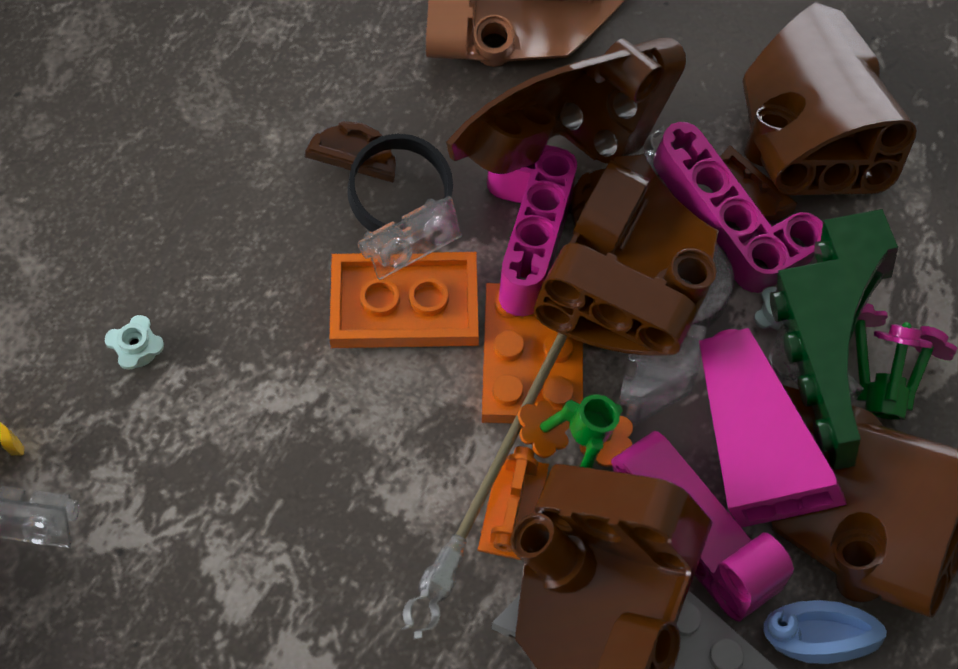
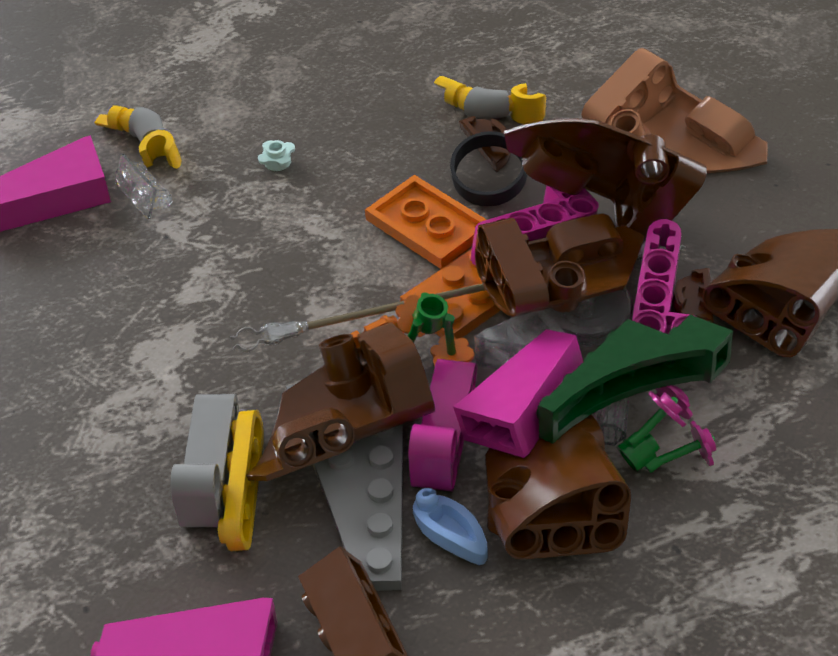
camera: 50 degrees right, 15 degrees down
(307, 103) = (494, 103): none -> piece
(412, 238) = (459, 187): clear hinge -> none

